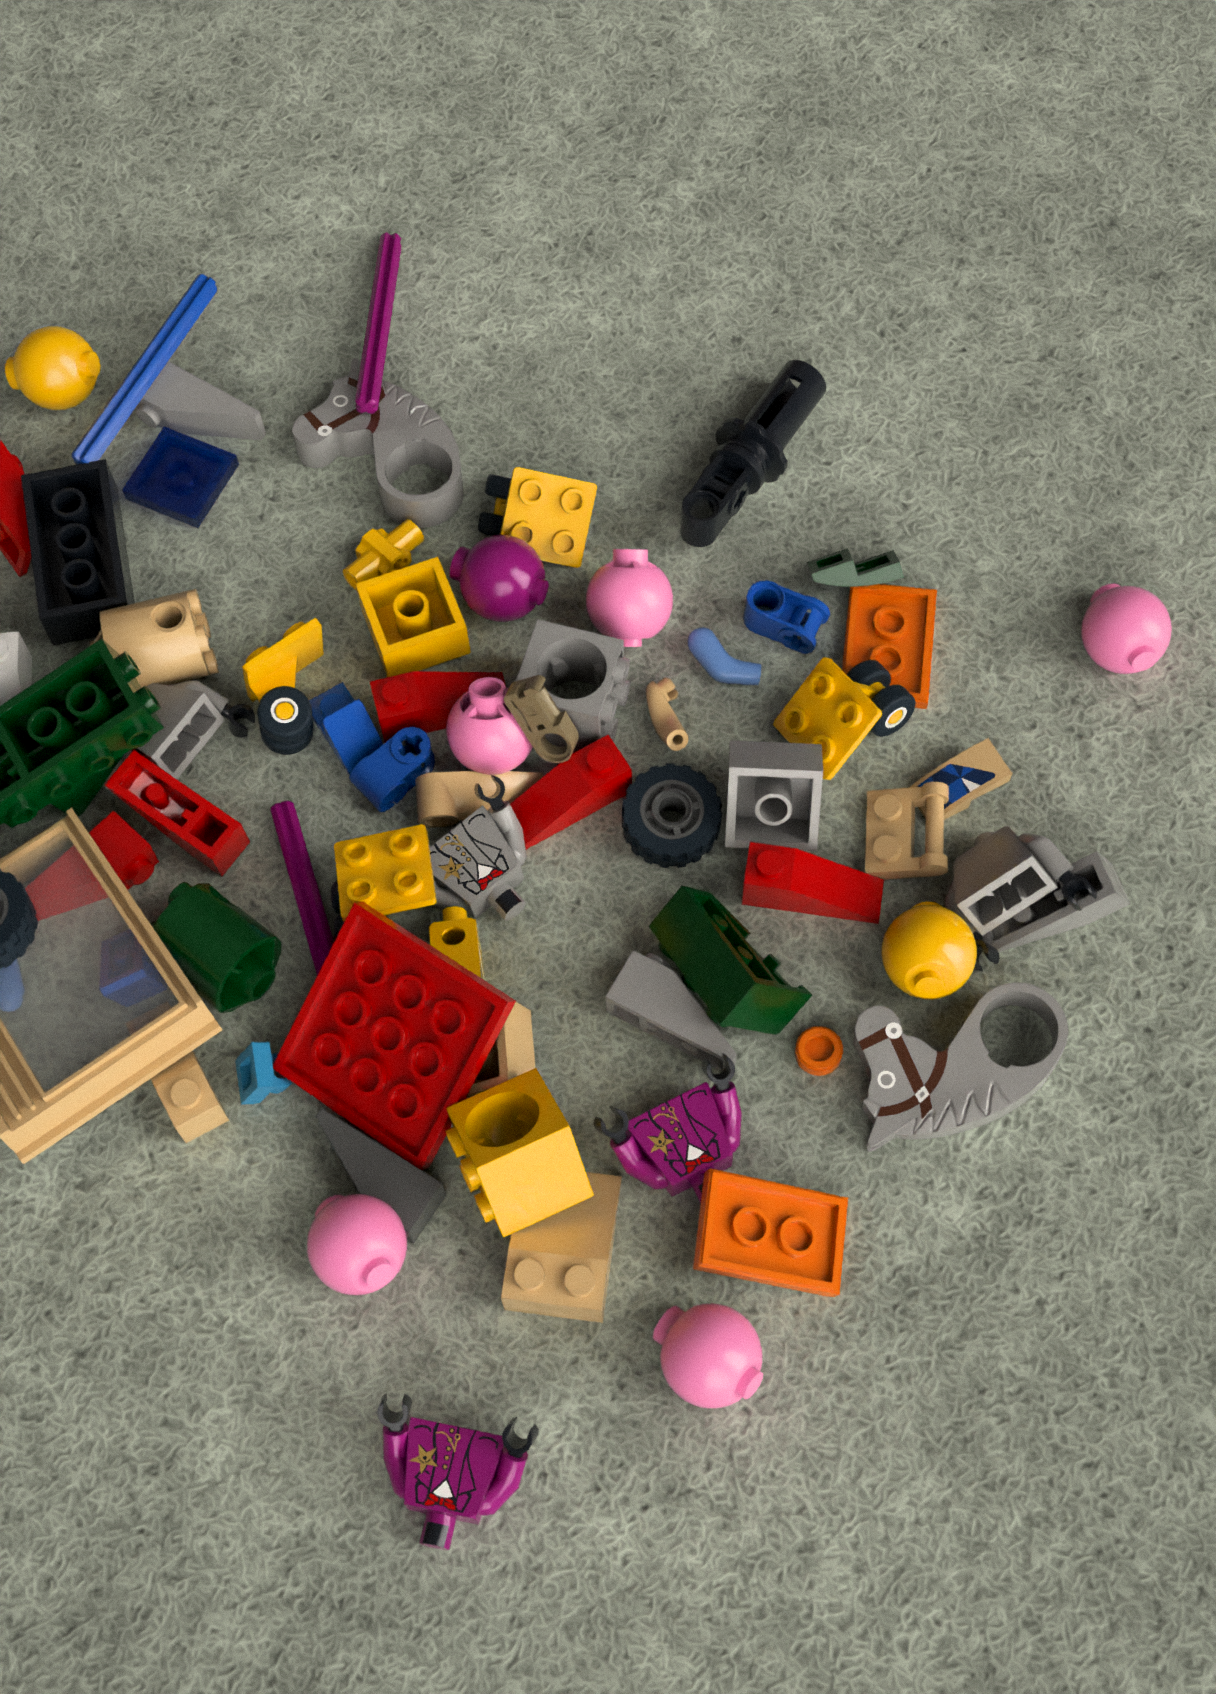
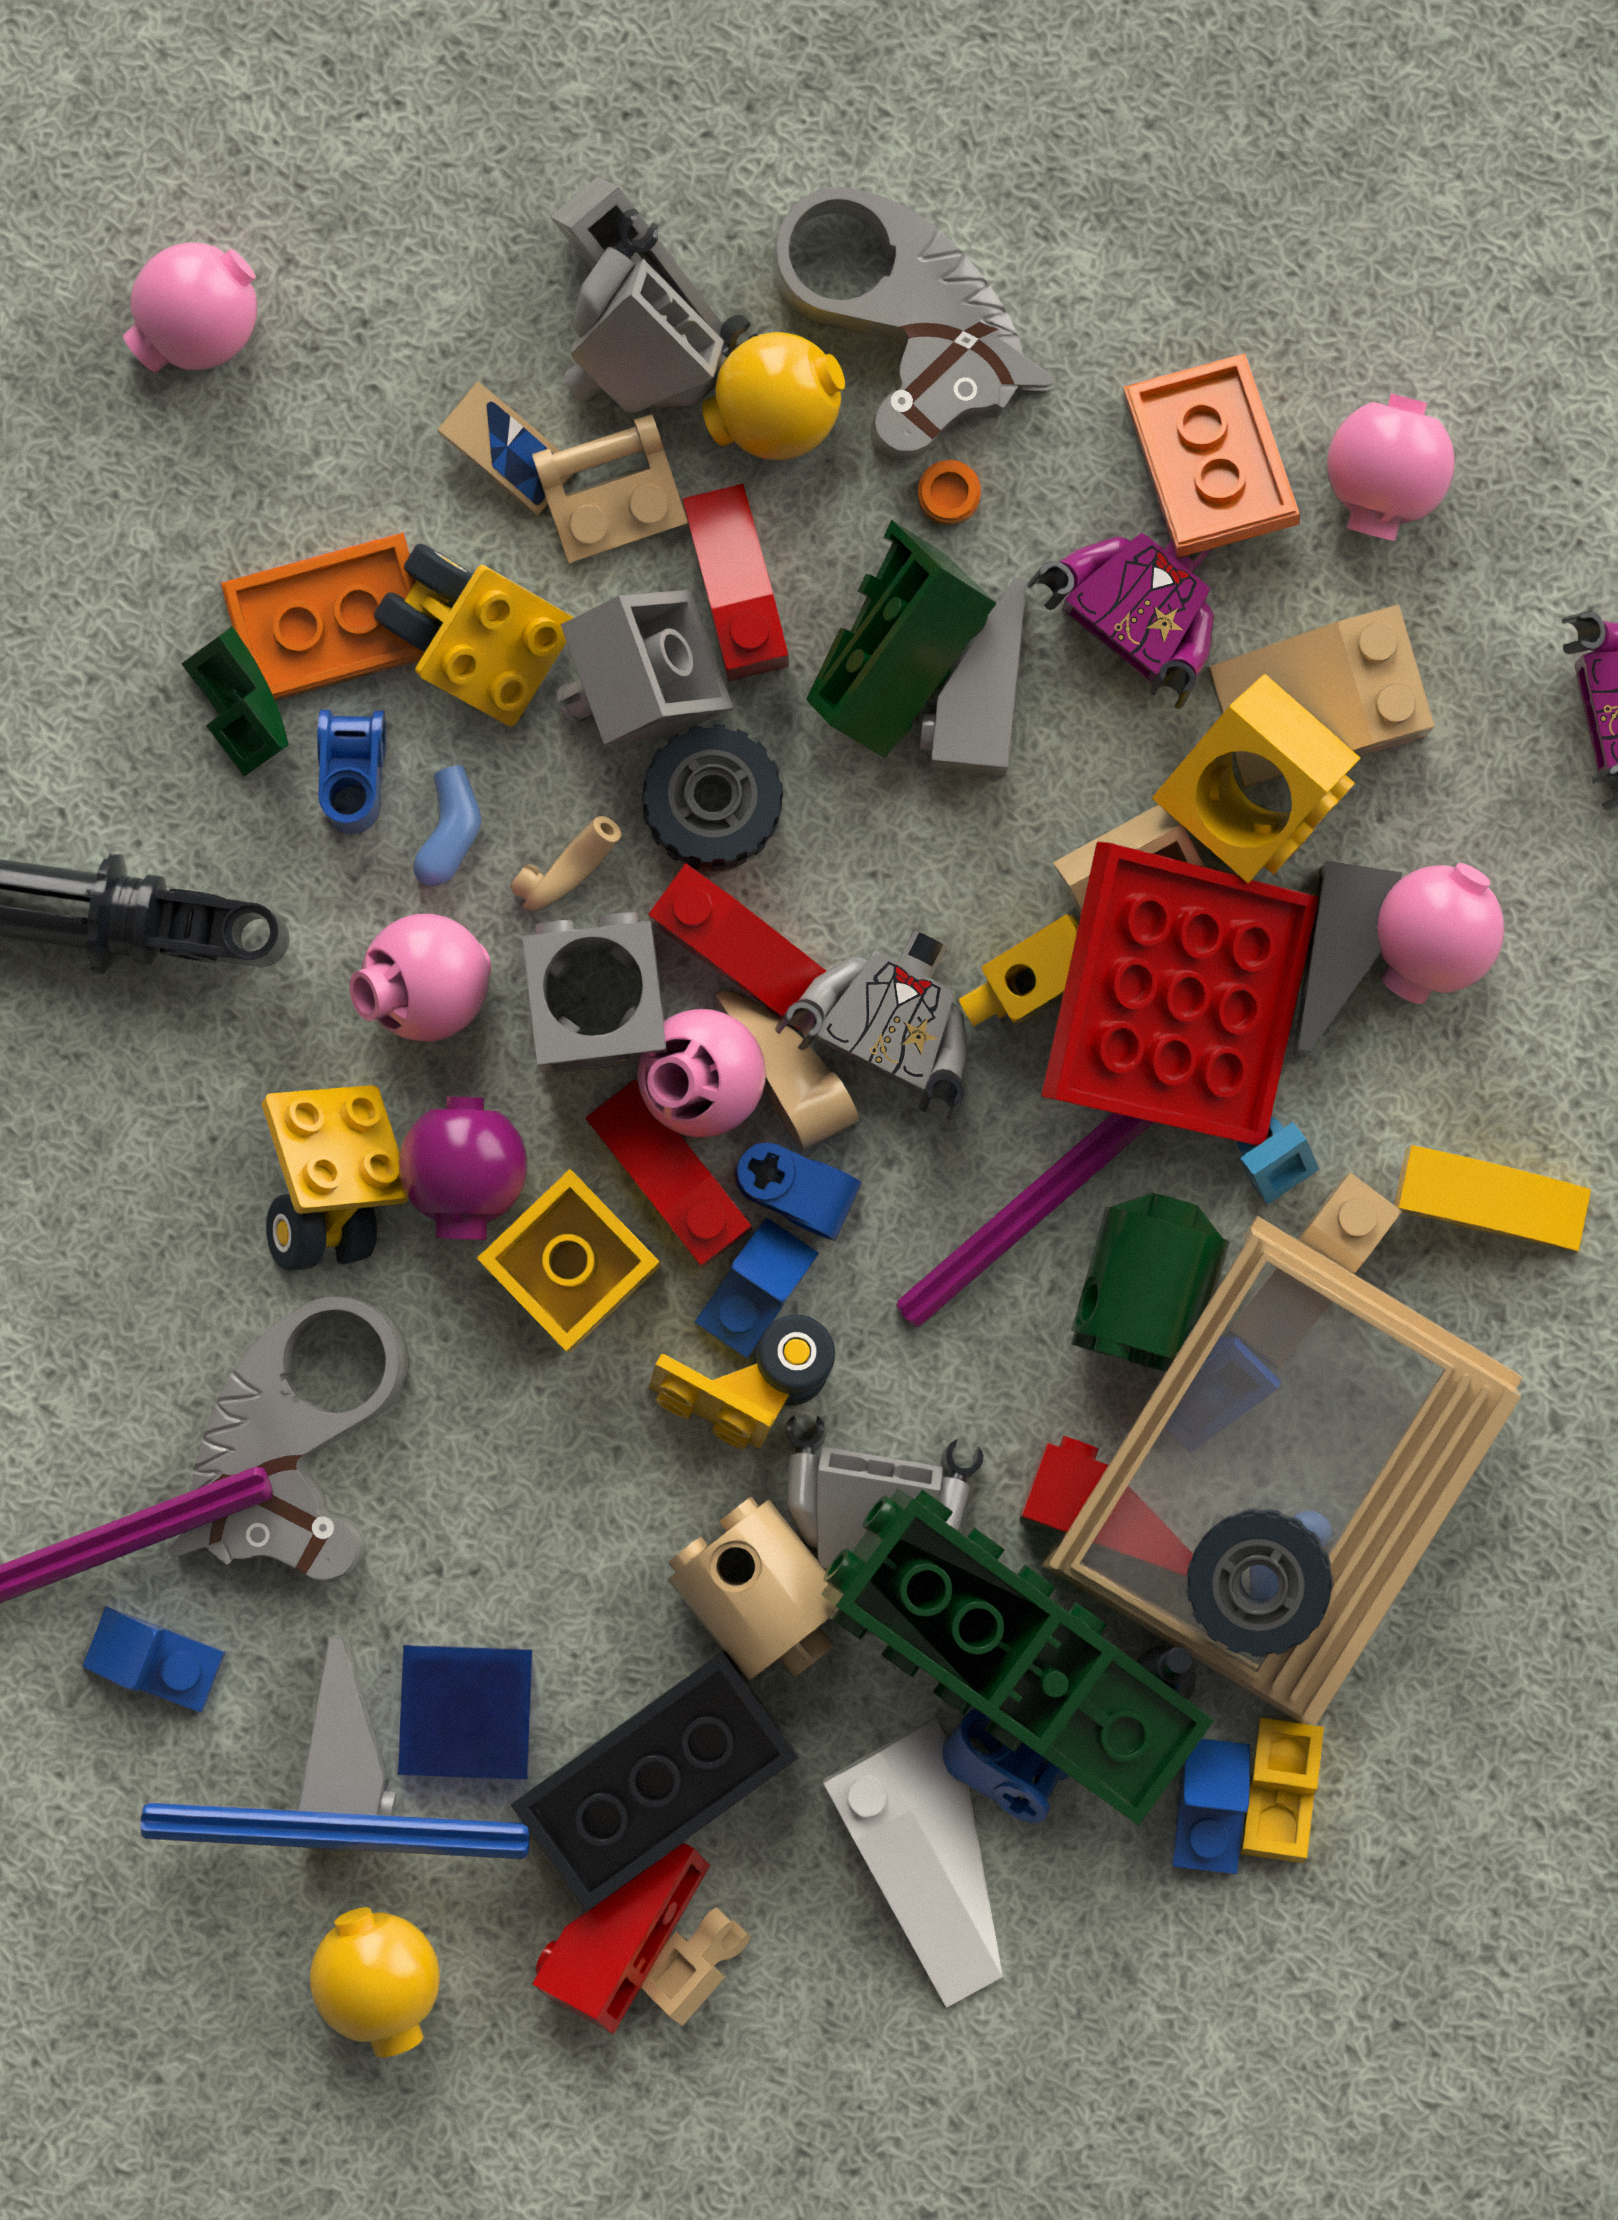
camera: 115 degrees left, 20 degrees up
(157, 1205) = (1491, 1198): none -> yellow slope
(179, 813) = (990, 1427): red slope -> none
(302, 339) = (153, 1659): none -> blue slope
(383, 552) = (476, 1359): yellow axle -> none
(384, 871) = (986, 1101): yellow plate -> none
(539, 716) = (681, 995): dark tan piece -> none

